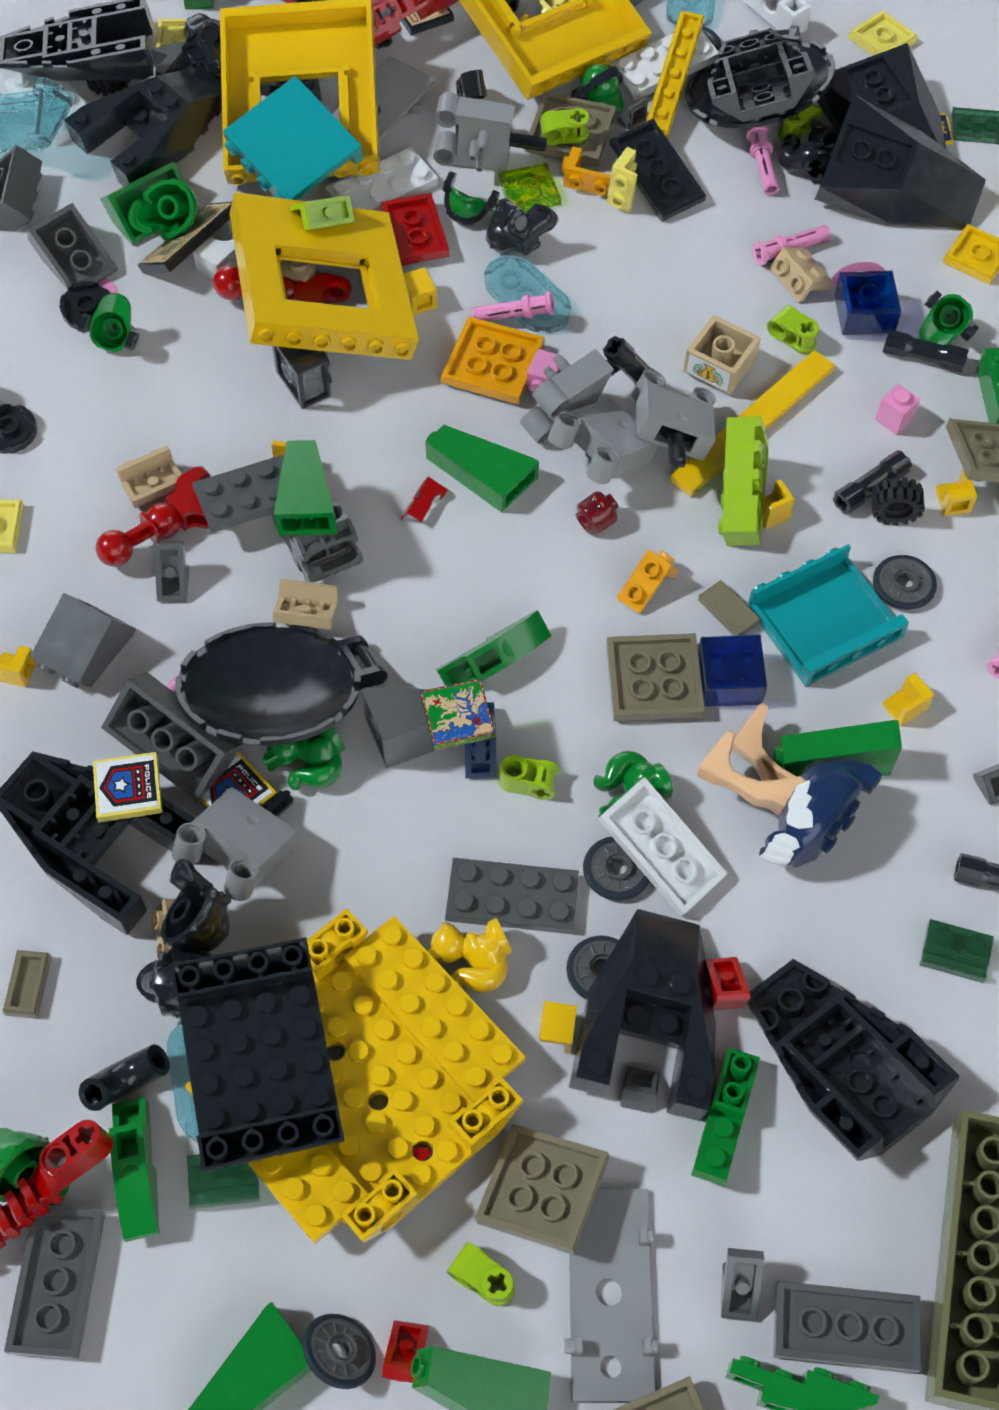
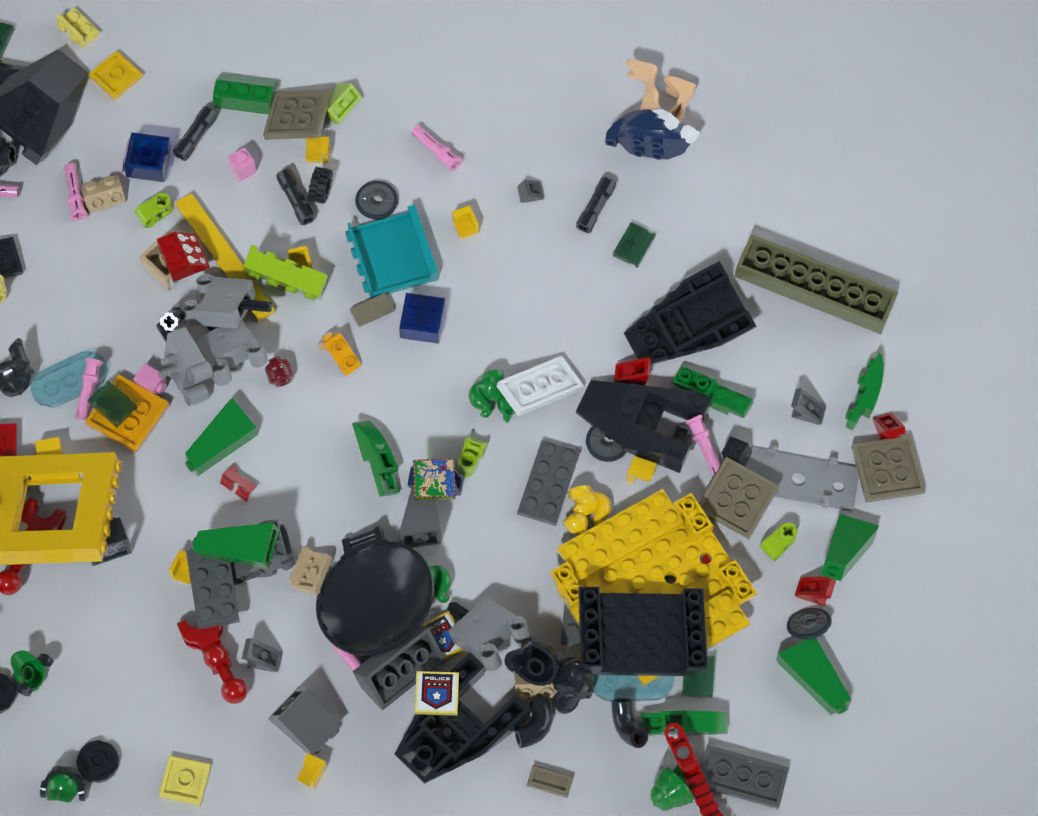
camera: 80 degrees left, 5 degrees up
(108, 949) = (539, 725): none -> black cylinder
(148, 476) = (176, 662): tan bracket -> none
(495, 334) = (112, 404): none -> clear green plate
(603, 880) = (544, 429): dark grey wheel -> none
(624, 1172) = (737, 450): none -> black brick
(638, 1108) = (701, 435): none -> bright pink pin
(655, 677) = (414, 365): dark tan plate -> none
(726, 352) = (182, 254): none -> red slope
(808, 806) = (533, 296): animal -> none
(847, 1326) = (837, 361): dark grey plate -> none
(865, 743) = (495, 269): green slope -> none
(947, 319) = (176, 110): green cap -> none

